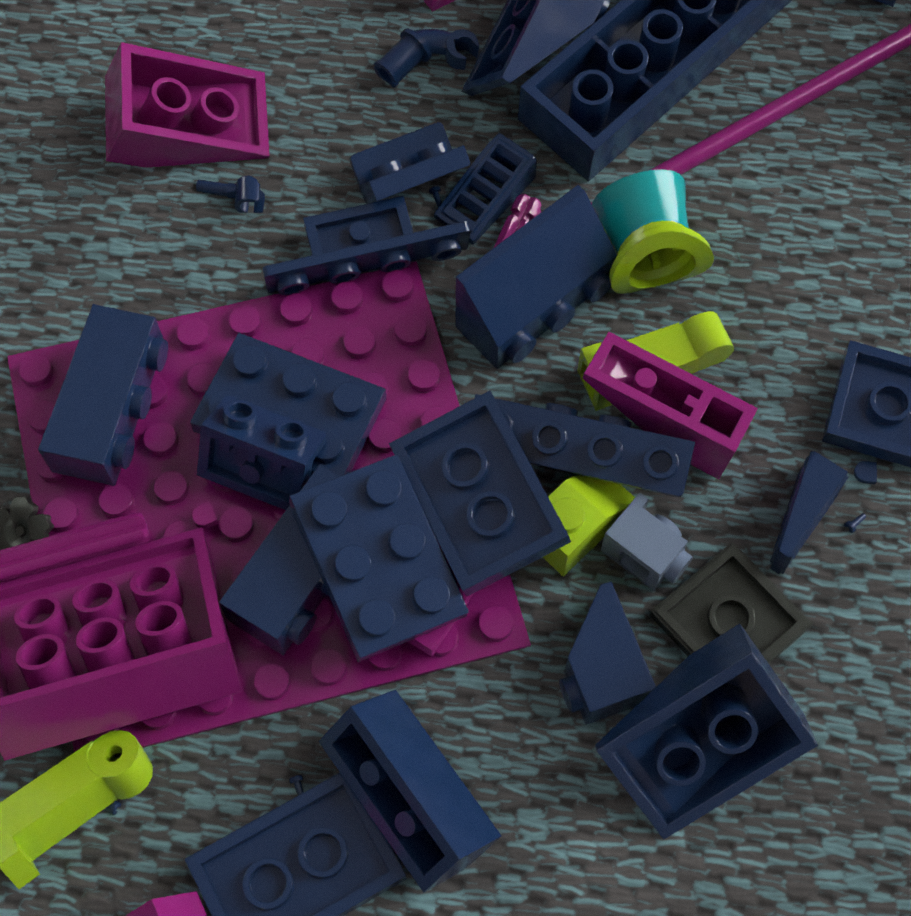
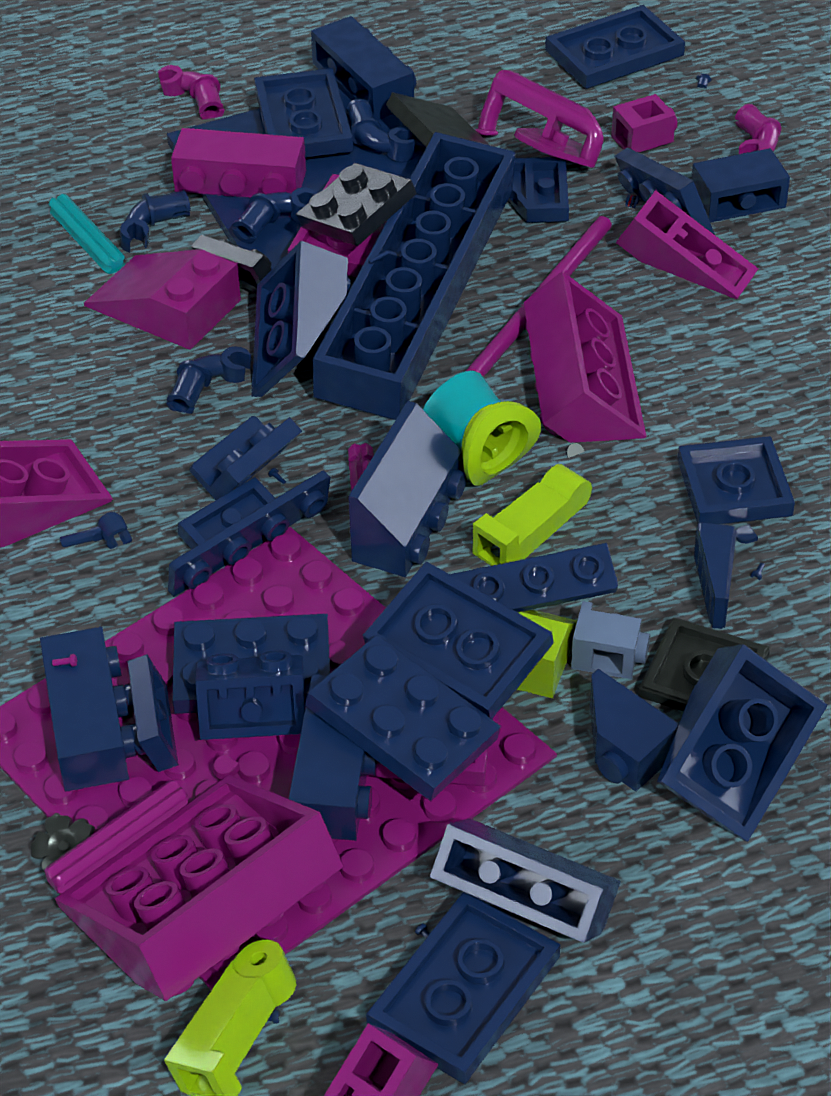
camera: 25 degrees left, 20 degrees down
(104, 345) = (64, 661): none -> magenta piece
(160, 430) = (150, 703): none -> dark blue plate
(503, 162) = (325, 427): dark blue slope -> none
(670, 401) = (564, 525): magenta slope -> none
(745, 291) = (574, 449): none -> light grey piece
(806, 195) = (582, 365): none -> magenta slope

